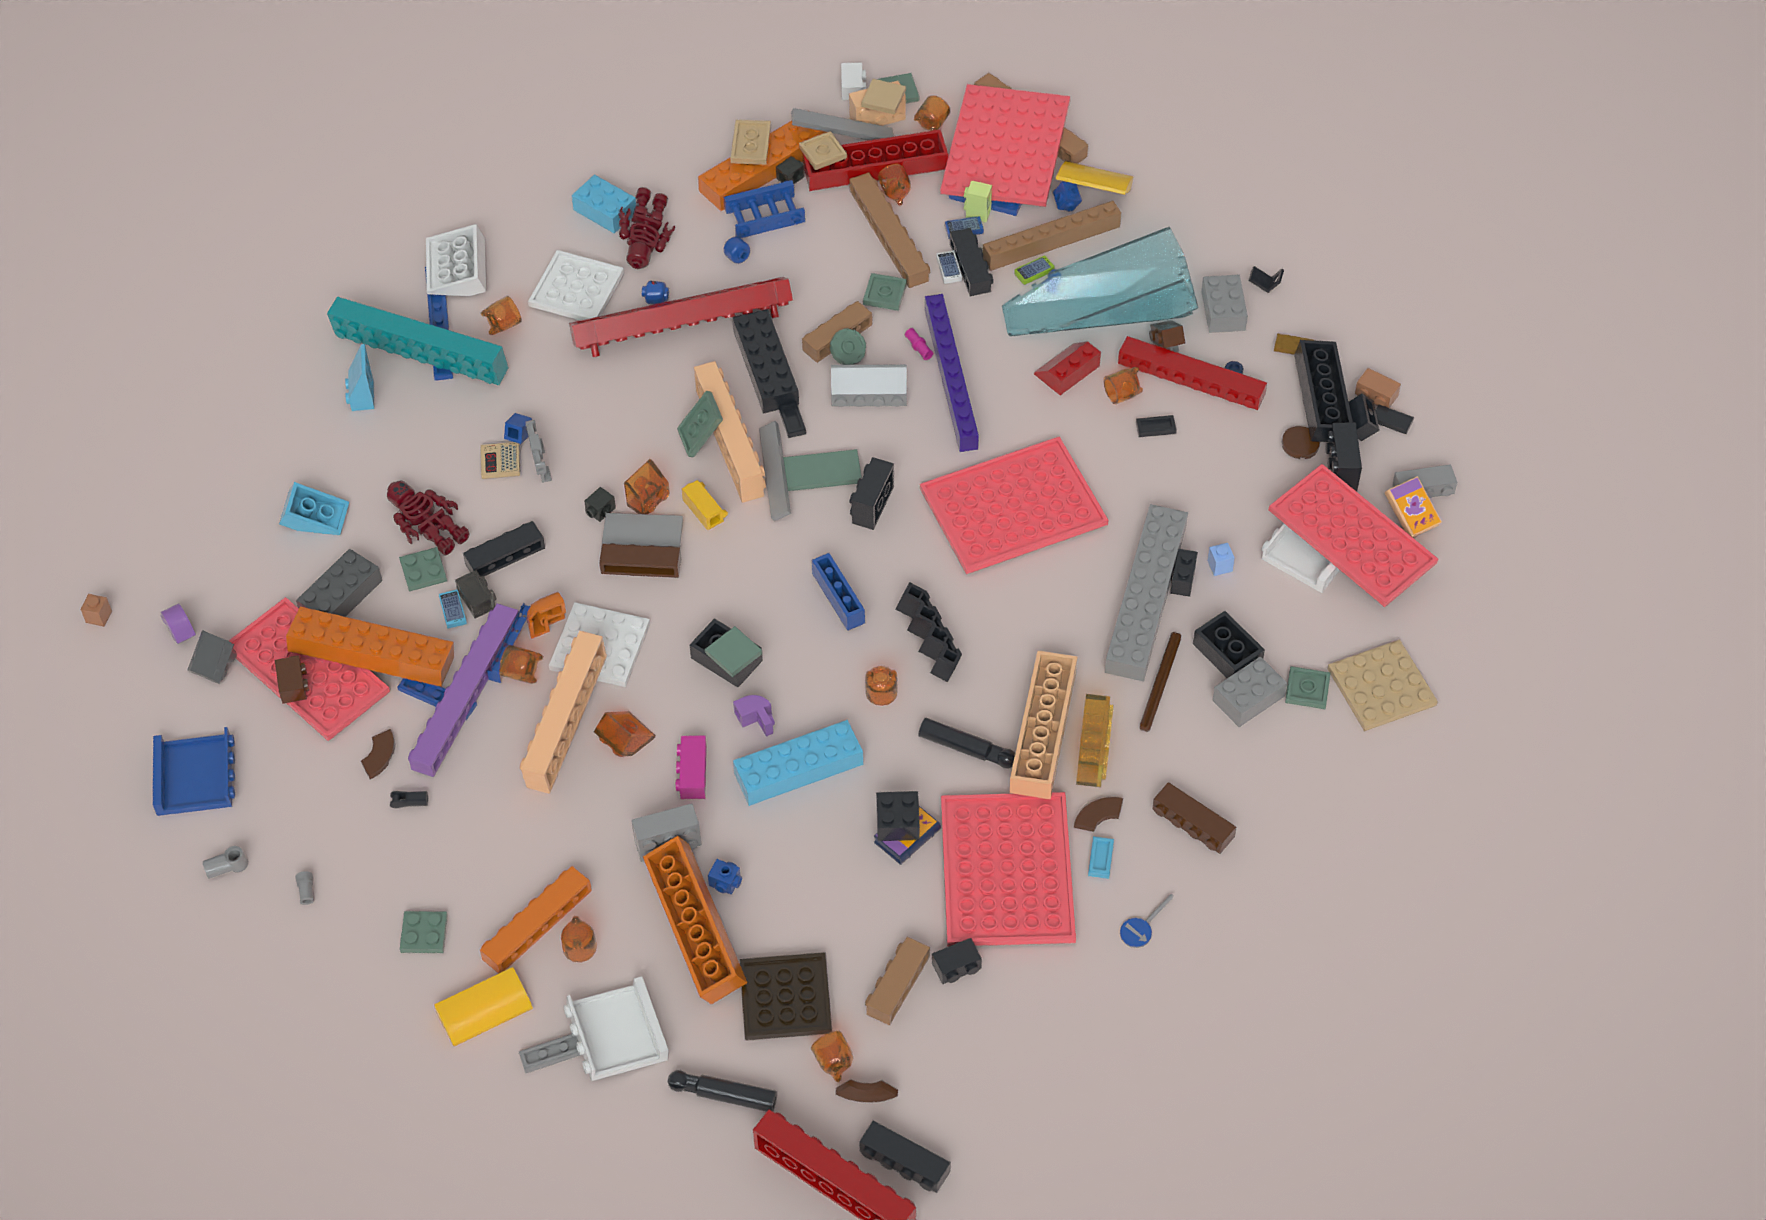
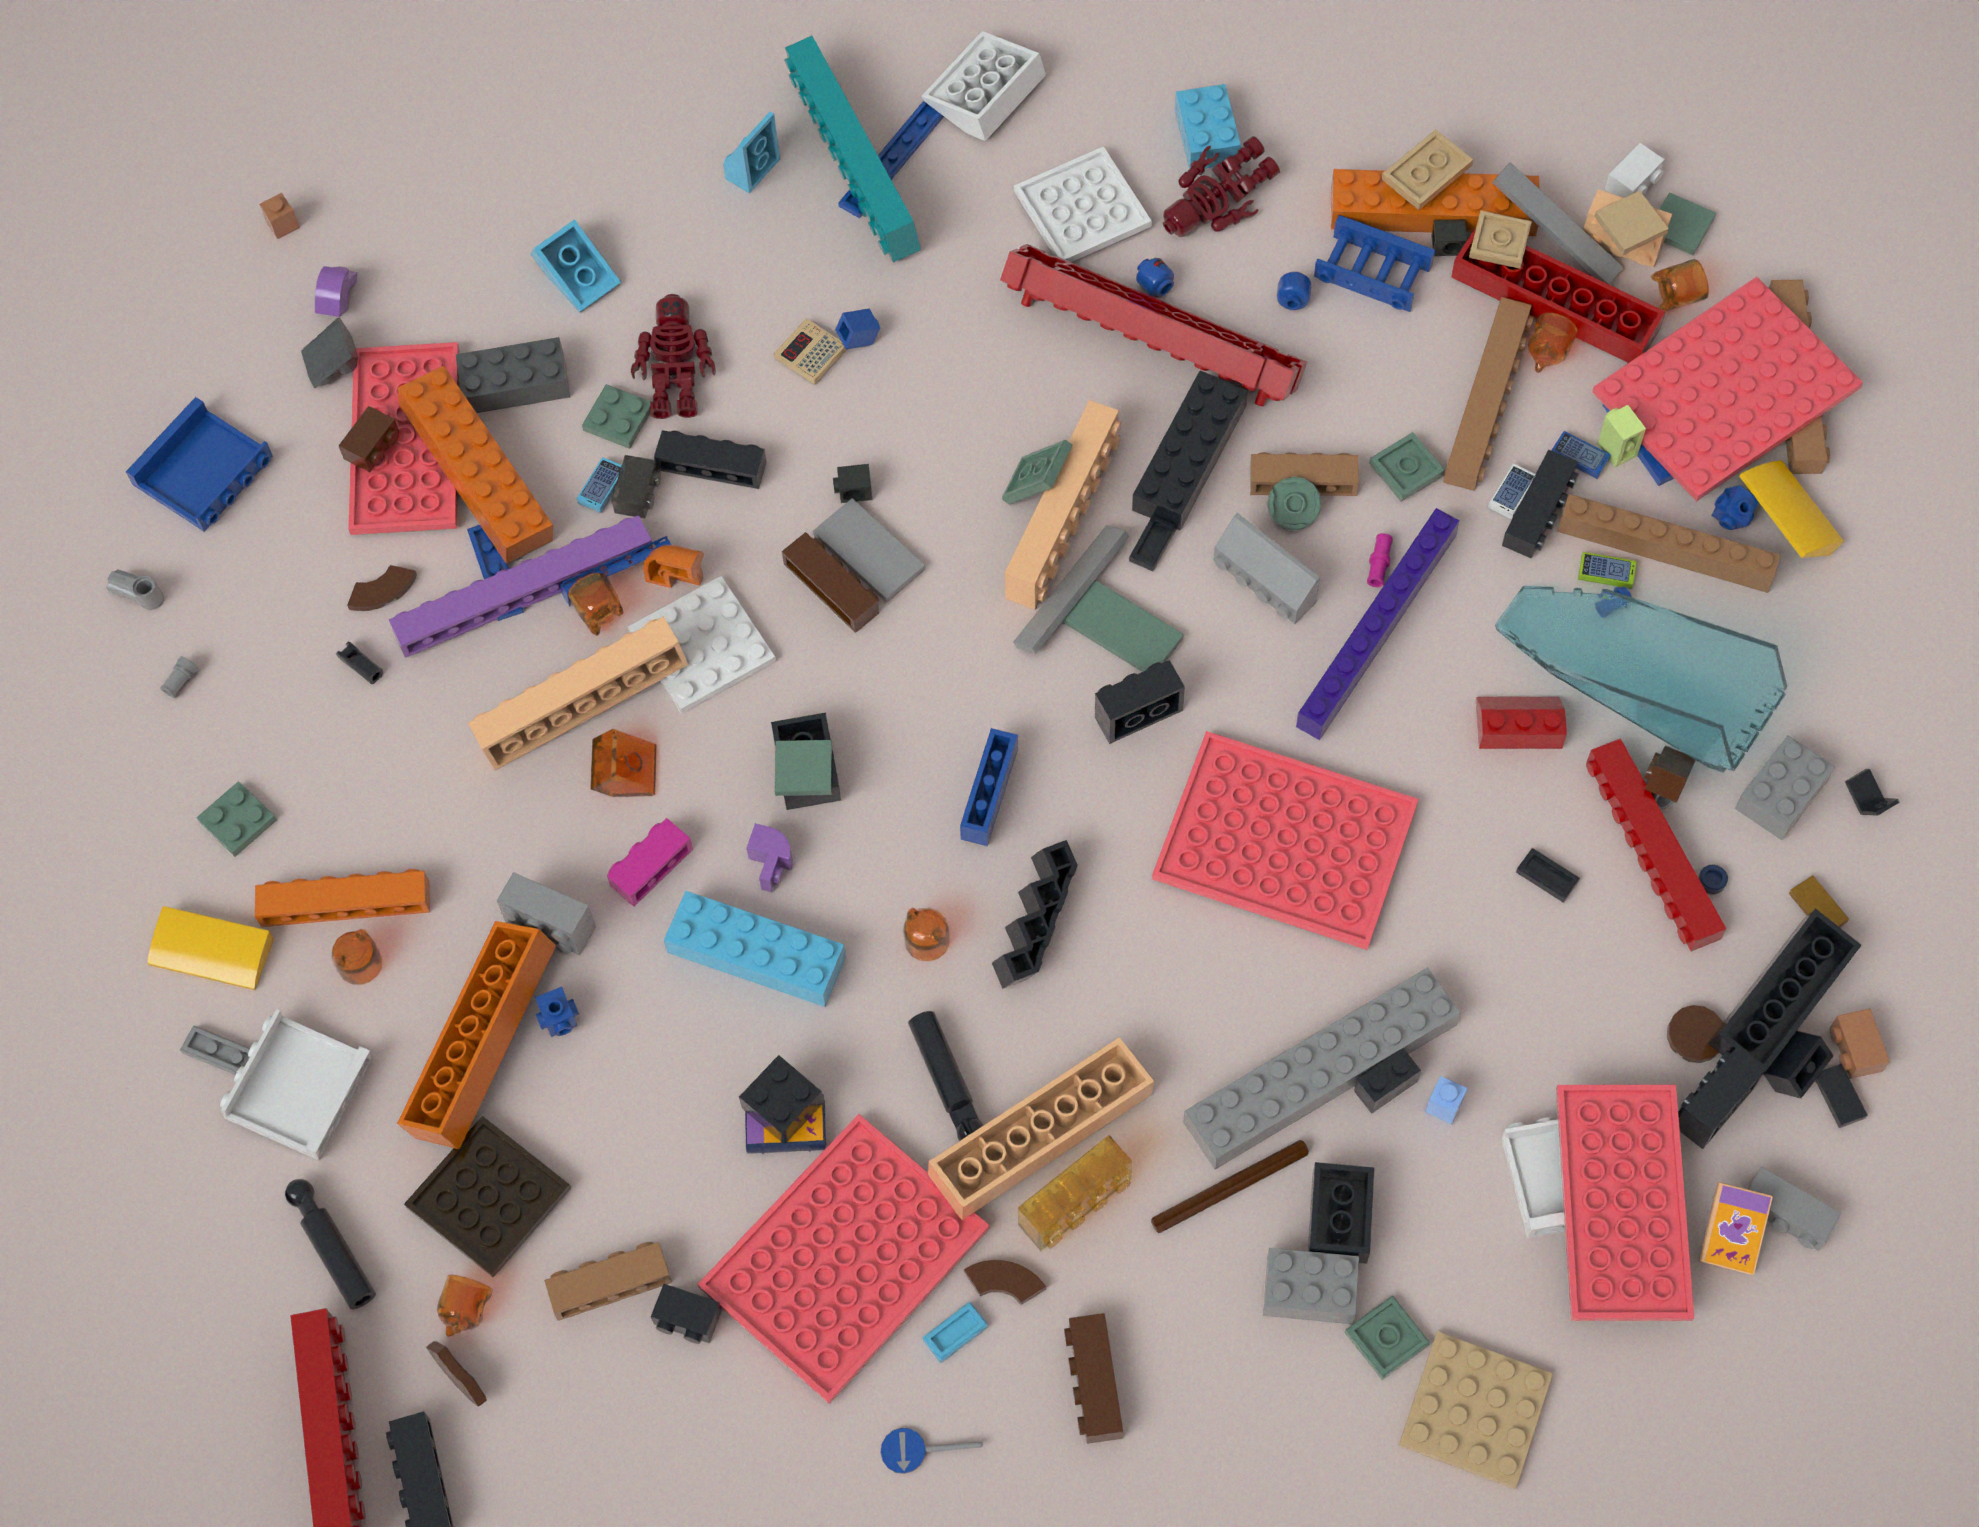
camera: 45 degrees right, 10 degrees up
(502, 315) = (969, 182): clear orange piece -> none
(537, 451) = (853, 360): light grey piece -> none
(646, 488) = (913, 504): clear orange slope -> none
(703, 504) = (957, 568): yellow brick -> none
(1122, 385) = (1556, 796): clear orange piece -> none

